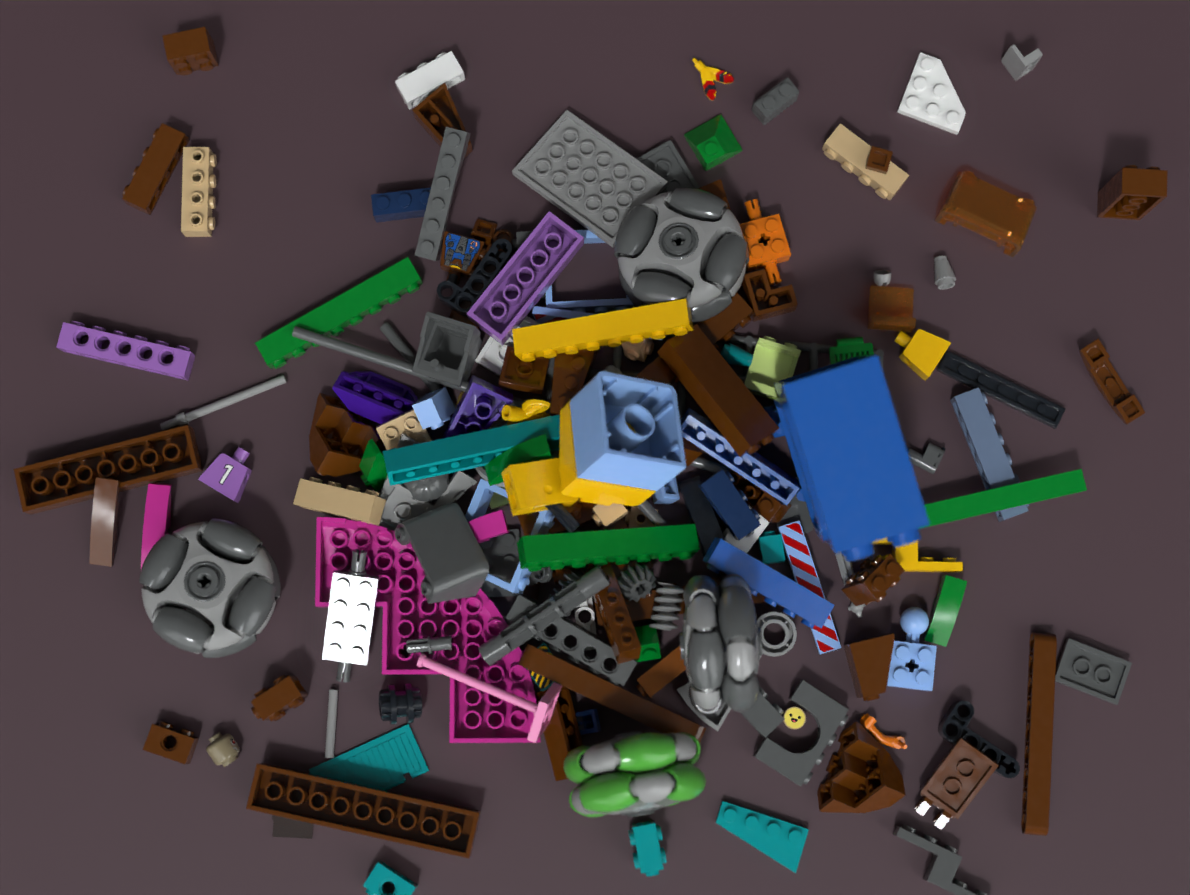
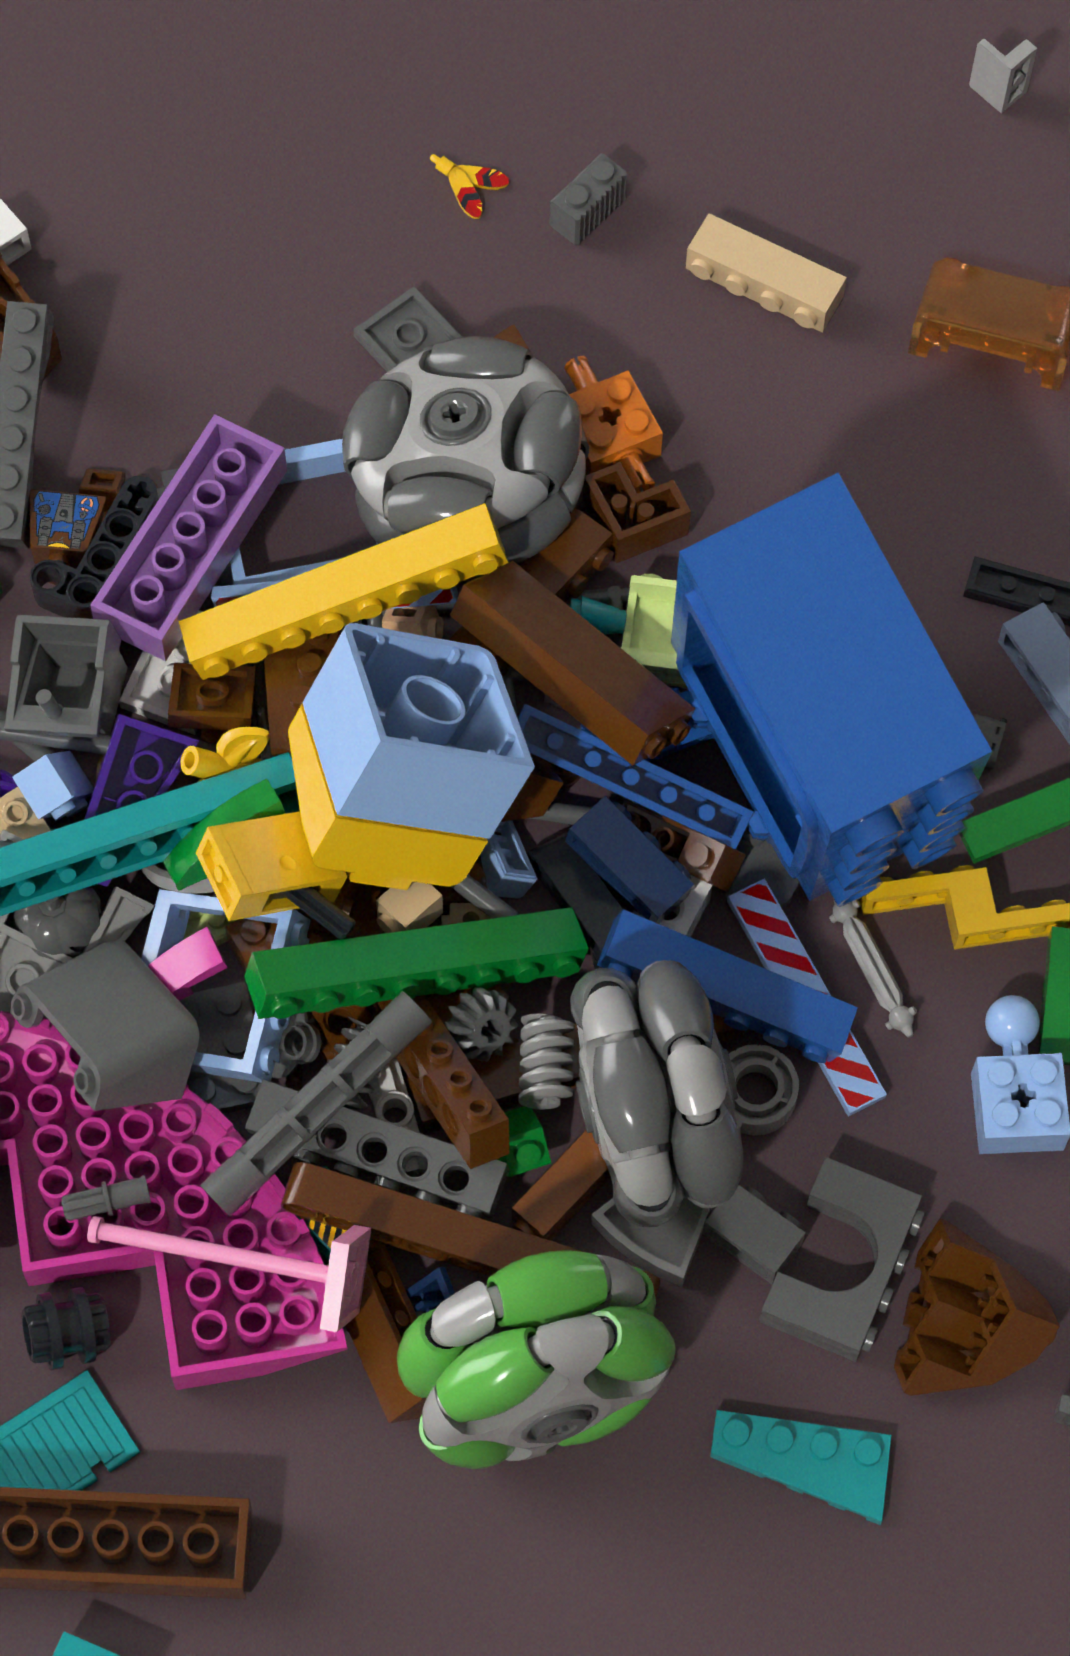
camera: 10 degrees left, 15 degrees down
(587, 176) = (272, 362): light grey plate -> none
(648, 854) = (591, 1525): teal brick -> none
(713, 142) = (490, 285): green slope -> none
(771, 548) = (723, 930): teal brick -> none
(794, 718) = (824, 1237): light yellow tile -> none
(870, 665) = (943, 1108): reddish brown slope -> none
(872, 580) = (920, 955): reddish brown brick -> none
(878, 160) = (788, 257): reddish brown plate -> none
(882, 277) = (833, 456): light grey hinge -> none
(891, 309) = (876, 497): clear orange bracket -> none
(893, 741) = (1019, 1249): orange piece -> none
(922, 351) = (930, 563): yellow torso -> none
(932, 96) = (861, 156): white plate -> none
(943, 273) = (942, 433): light grey cone -> none

